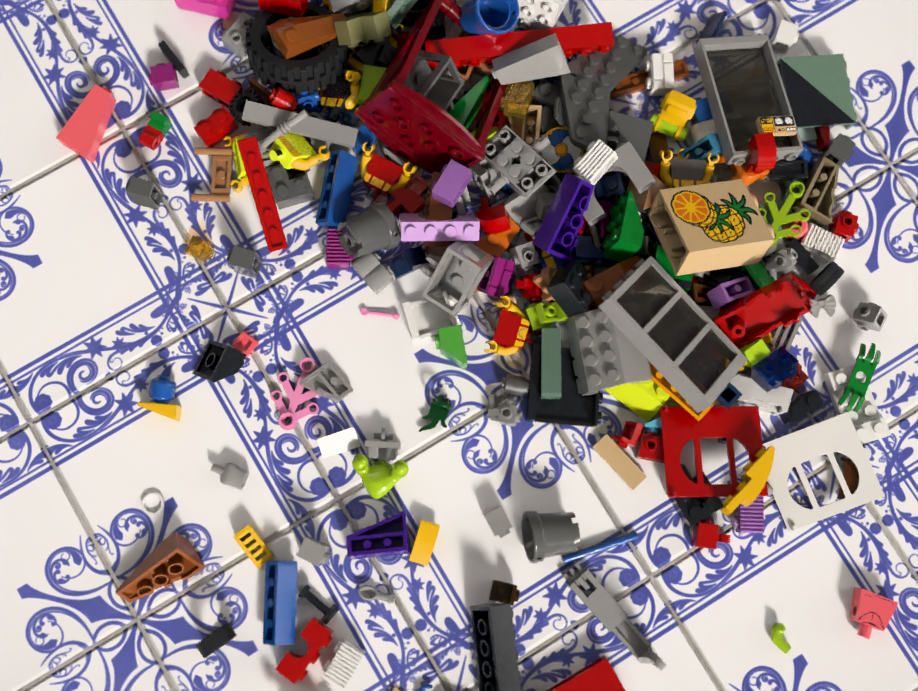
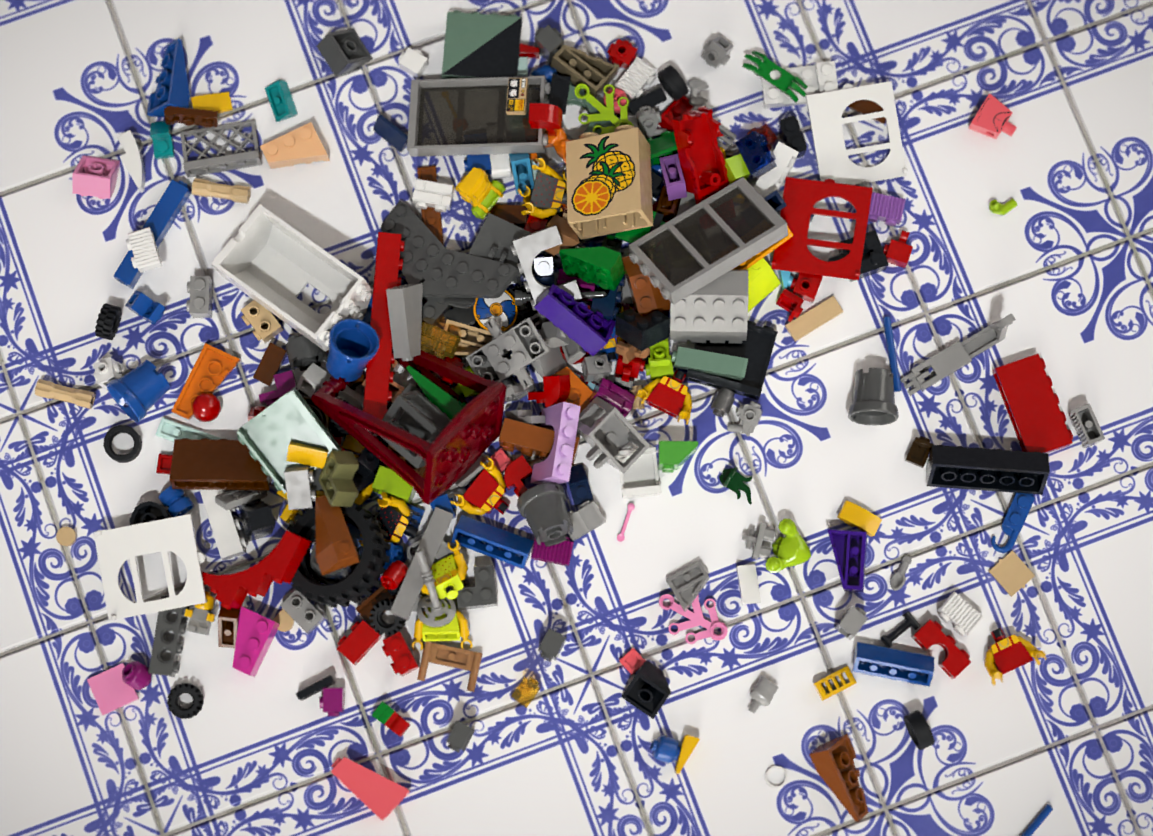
camera: 75 degrees left, 0 degrees up
(262, 193) = (484, 615): red tile -> none
(451, 183) = (518, 421): medium lavender brick -> none
(498, 522) = (852, 444): light grey brick -> none
(595, 162) = (527, 278): white brick -> none
(753, 482) = (855, 195): yellow slope -> none

